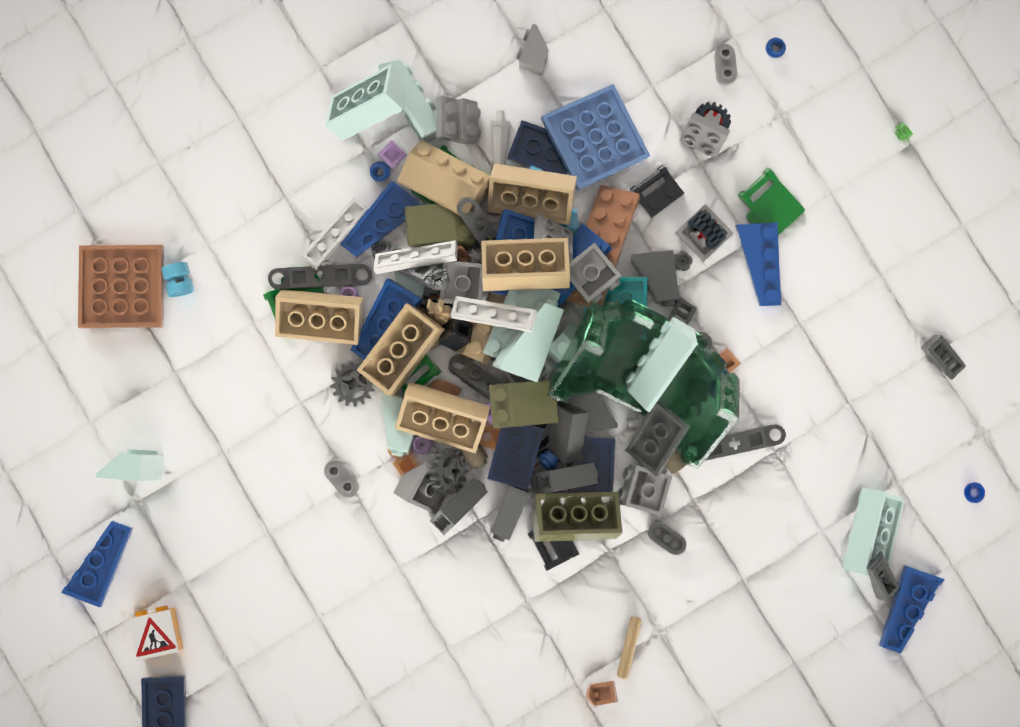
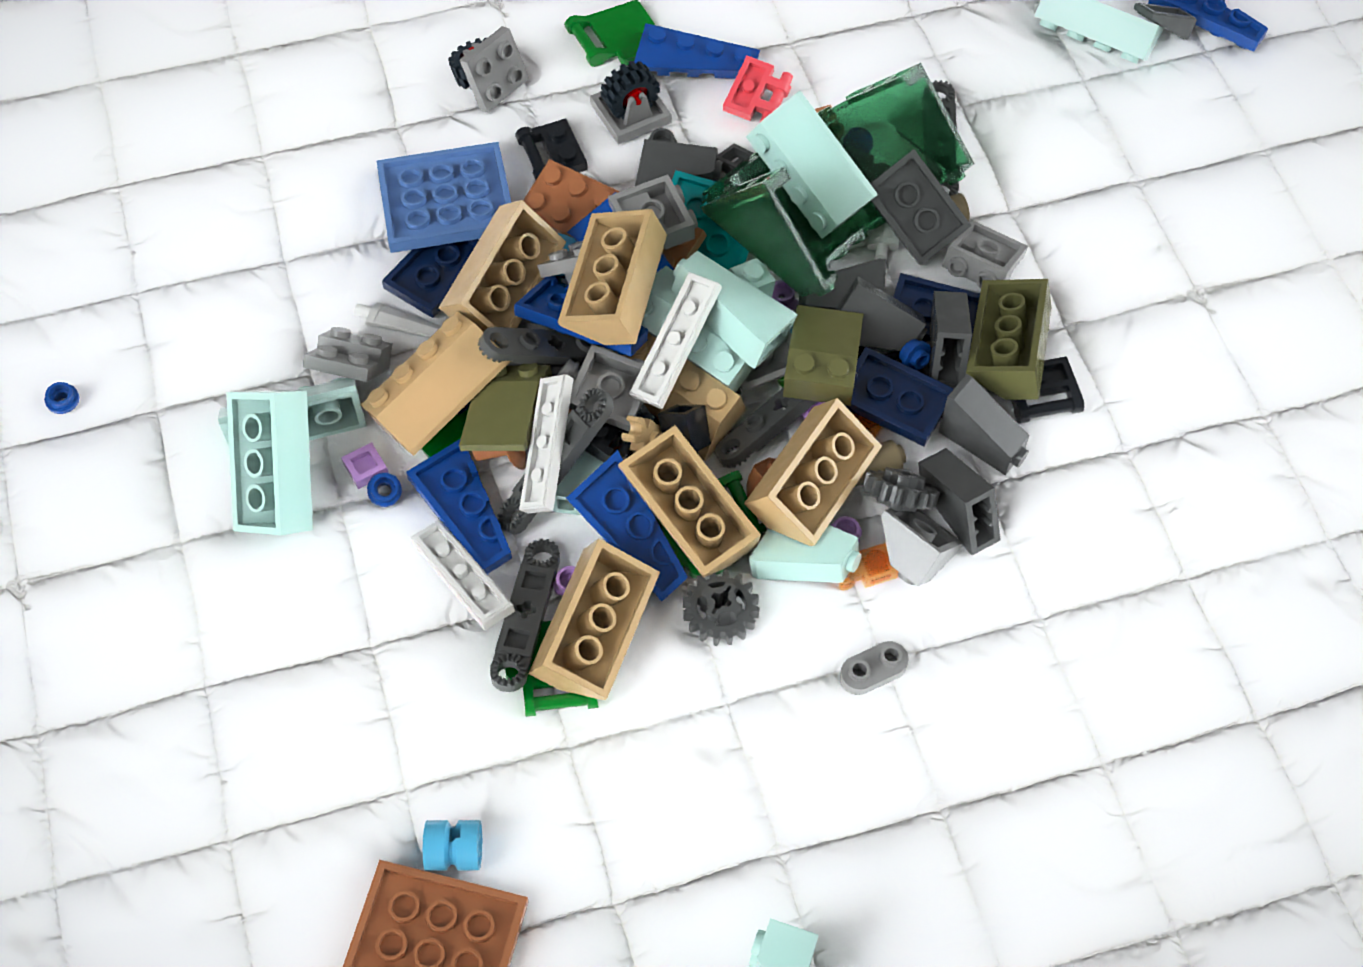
camera: 75 degrees left, 25 degrees down
(535, 52) = (286, 242): light grey slope -> none
(602, 693) = (1285, 377): nougat plate -> none
(629, 647) = (1218, 331): tan axle -> none
(666, 537) = (1058, 247): dark grey plate -> none
(725, 63) = (403, 38): light grey plate -> none
(741, 306) = (750, 86): none -> coral plate

